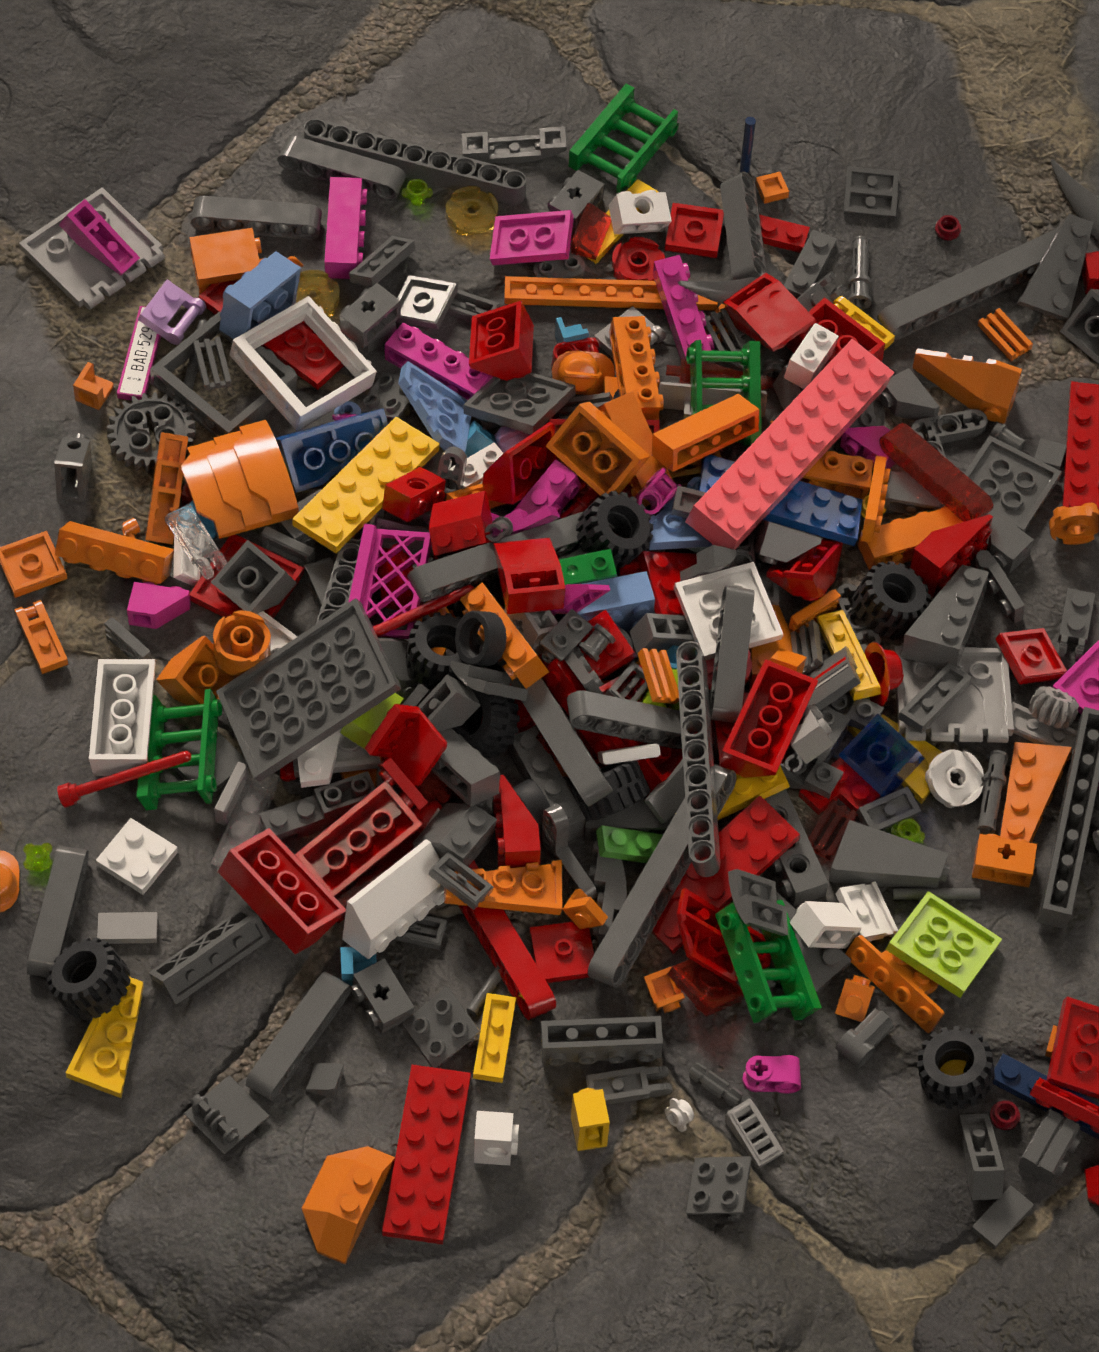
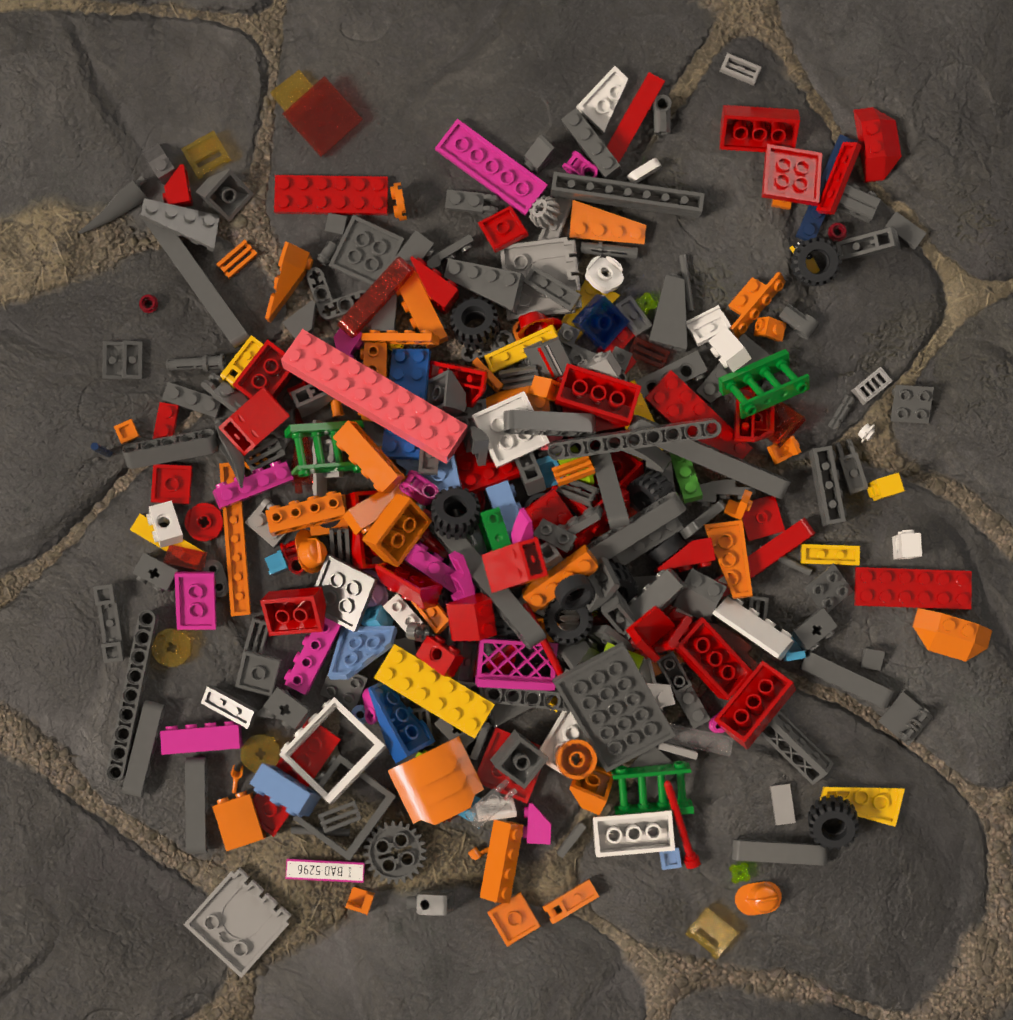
camera: 95 degrees left, 25 degrees up
(76, 767) = (670, 859): none -> medium blue plate
(98, 238) = (236, 918): dark pink slope -> none
(136, 856) = (729, 806): white plate -> none
(165, 306) = (288, 860): lavender plate -> none
(166, 486) = (442, 833): orange slope -> none
(417, 191) = (163, 690): clear neon green plate -> none
(457, 883) = (731, 600): dark grey tile -> none
(496, 527) = (475, 590): dark grey pin -> none
(596, 642) = (554, 514): dark grey bush -> none
(610, 120) = (95, 562): green fence -> none
(629, 753) = (634, 485): white tile -> none
(757, 902) = (735, 392): dark grey slope -> none
(775, 1074) = (831, 373): dark pink piece -> none
(811, 356) = (293, 388): white brick -> none
(944, 944) = (730, 274): lime plate -> none
(993, 867) = (659, 228): orange brick -> none

